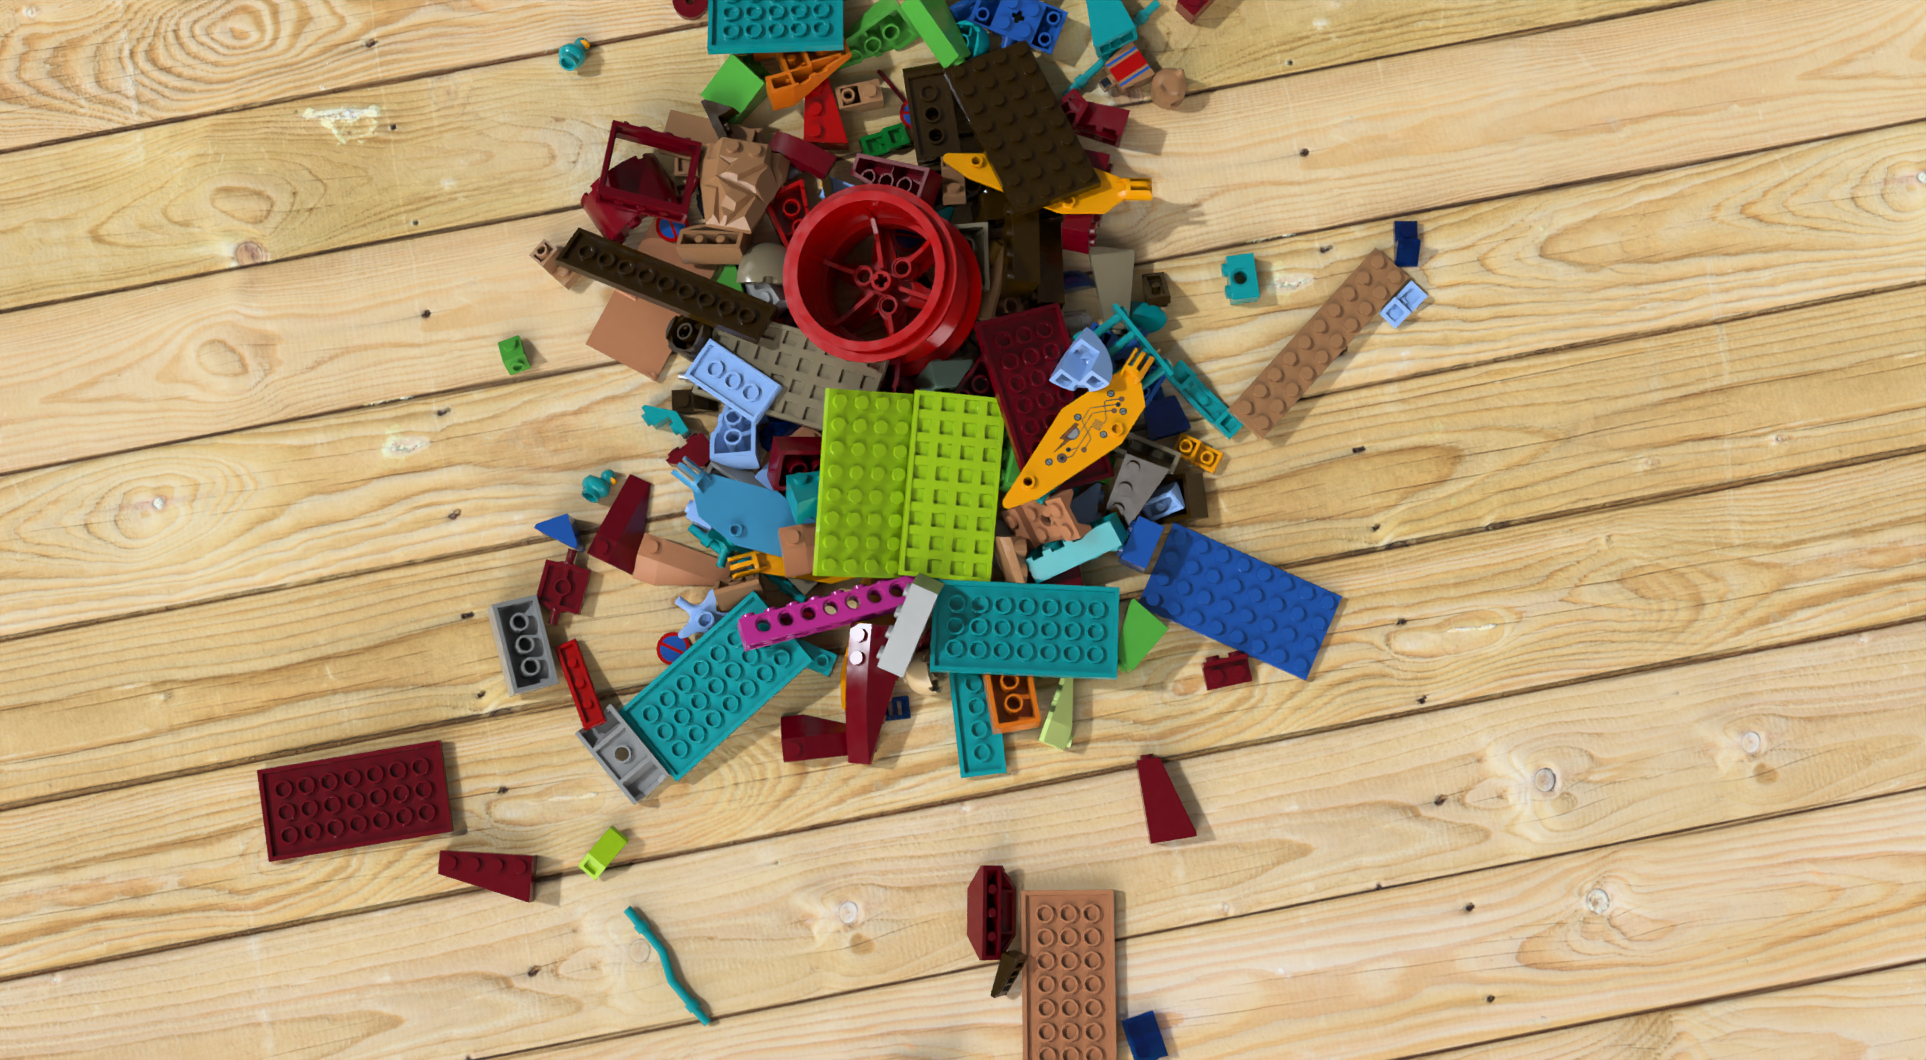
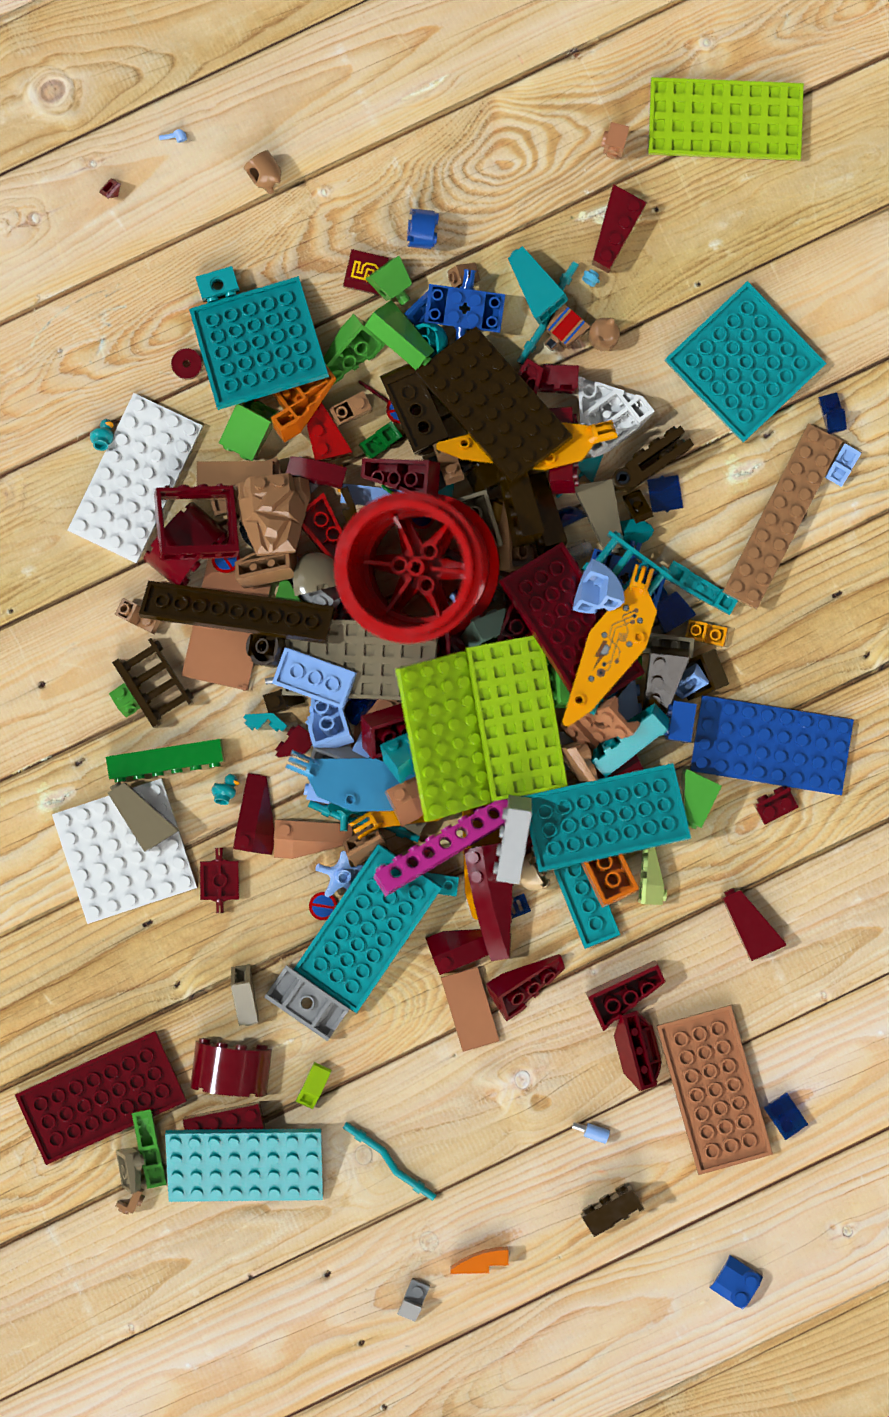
camera: 20 degrees left, 5 degrees up
(360, 931) = (136, 1200): none -> medium nougat bracket
(364, 890) = (130, 1167): none -> dark tan slope
(393, 875) = (149, 1147): none -> bright green slope
(464, 525) = (109, 863): none -> white plate
(494, 493) = (141, 817): none -> dark tan slope
(497, 923) = (244, 1165): none -> plate
(514, 807) = (230, 1069): none -> dark red cylinder
(522, 645) = (201, 937): light grey slope -> none
(529, 338) = (134, 683): none -> dark brown fence
(540, 433) = (165, 759): none -> green brick
(552, 726) = (244, 995): none -> slope
(563, 530) = (209, 836): blue slope -> none
(569, 134) = (144, 455): none -> white plate
(580, 684) = (256, 955): red tile -> none
(719, 116) = (238, 458): dark brown slope -> none
(809, 813) = (470, 1009): none -> nougat tile
(871, 801) = (516, 987): none -> dark red wedge
(913, 995) = (593, 1132): none -> light blue piece
(992, 841) = (624, 992): none -> dark red wedge
(1008, 970) = (663, 1093): dark brown slope -> none
(1111, 233) = (588, 468): none -> teal piece
(1157, 251) = (631, 472): none -> dark brown hinge
(1170, 23) = (591, 278): none -> medium azure plate
(1171, 177) = (602, 403): none -> white wedge
(1191, 284) = (665, 493): none -> clear blue piece
(1245, 266) = (704, 467): teal brick -> none
(1320, 160) = (745, 361): none -> teal plate

